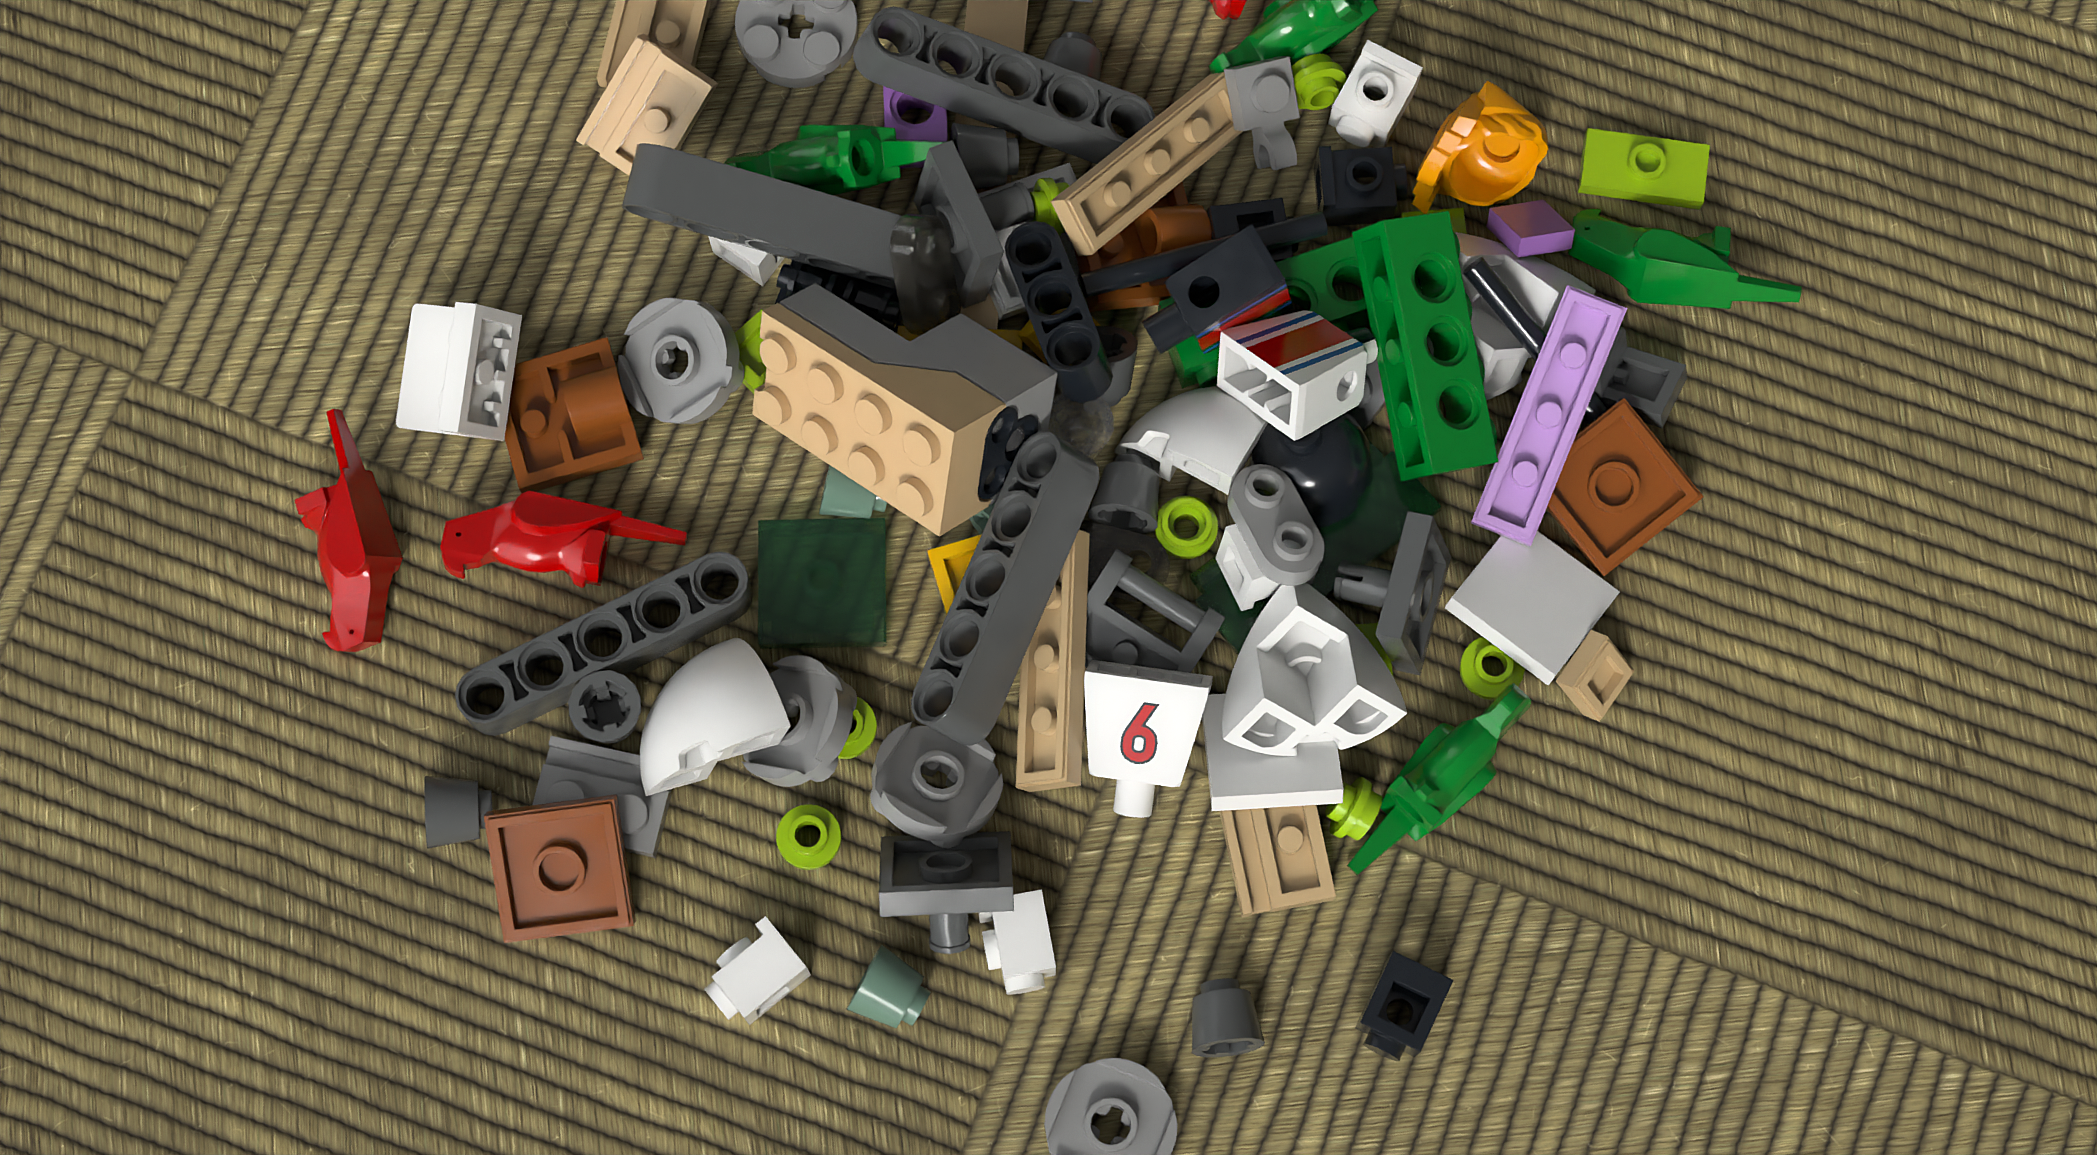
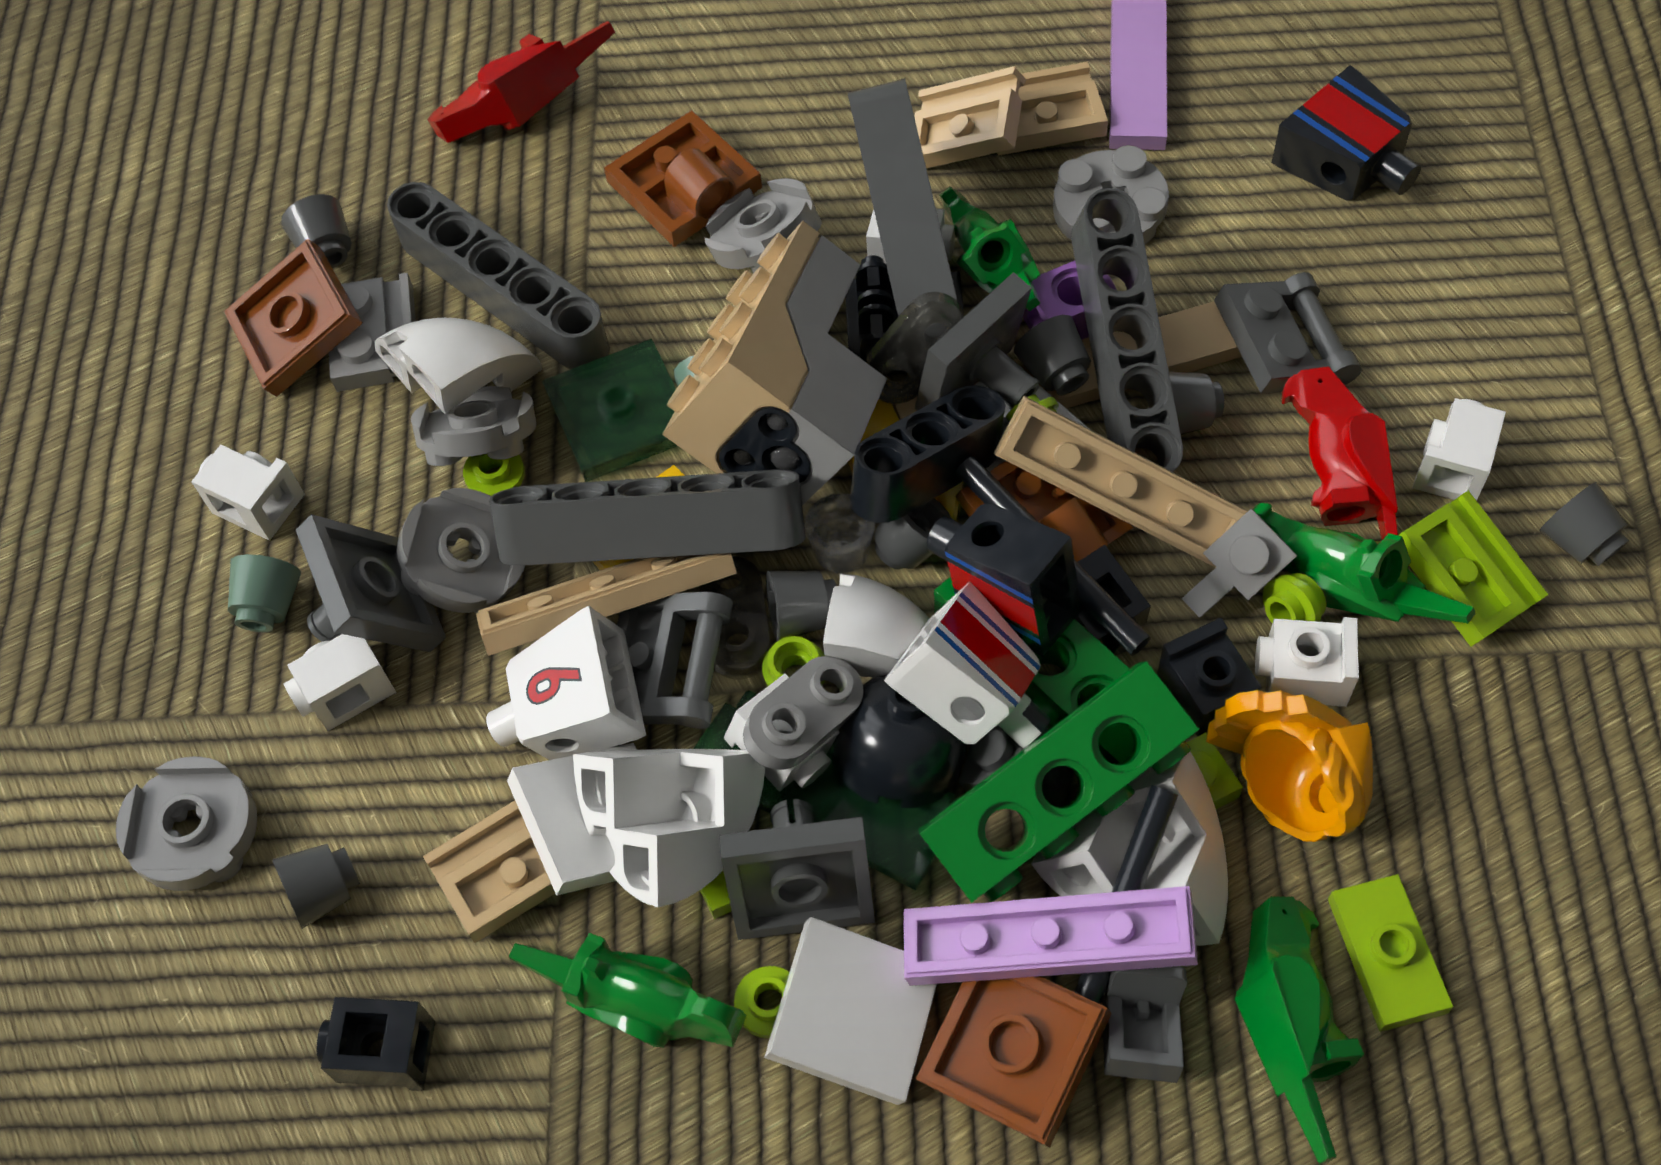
camera: 75 degrees right, 15 degrees down
(459, 370) = (674, 82): white bracket -> none
(544, 536) = (569, 199): red animal -> none
(605, 706) = (436, 288): dark grey hat -> none
(808, 857) = (388, 497): lime plate -> none
(1356, 812) = (566, 919): lime plate -> none
(1530, 228) = (1253, 855): medium lavender tile -> none
(1595, 675) = (799, 1107): tan tile -> none

